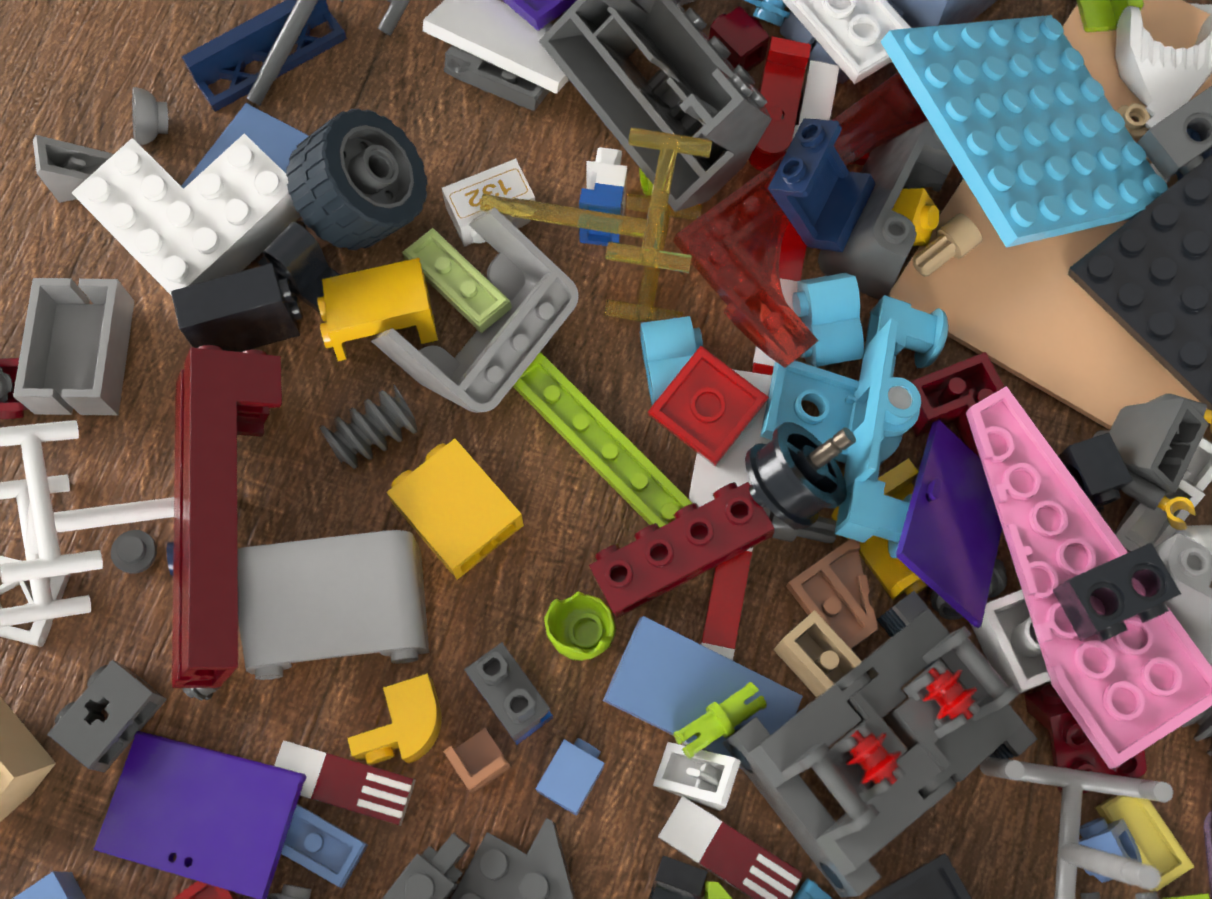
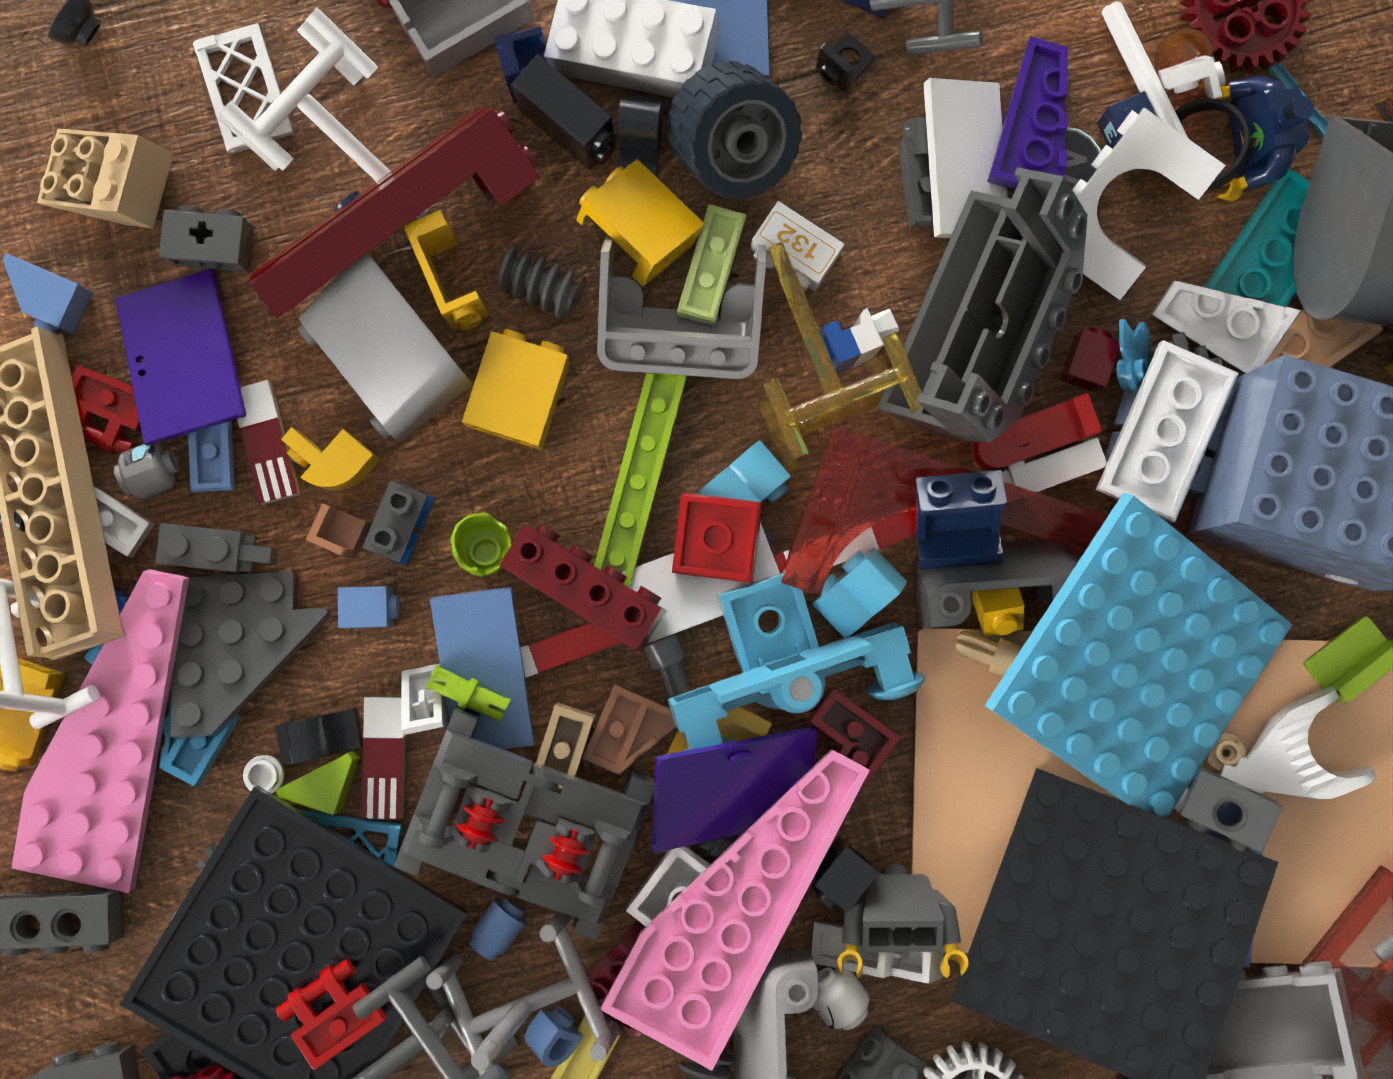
camera: 60 degrees right, 15 degrees up
(133, 551) = (336, 169): dark grey plate -> none
(157, 321) = (517, 51): none -> clear blue panel
(261, 498) = (428, 238): none -> yellow panel
(359, 85) = (836, 69): none -> black bracket
(798, 474) = (691, 642): black wheel -> none
(968, 840) = (497, 928): none -> medium blue brick
(1114, 588) = (740, 935): black brick -> none

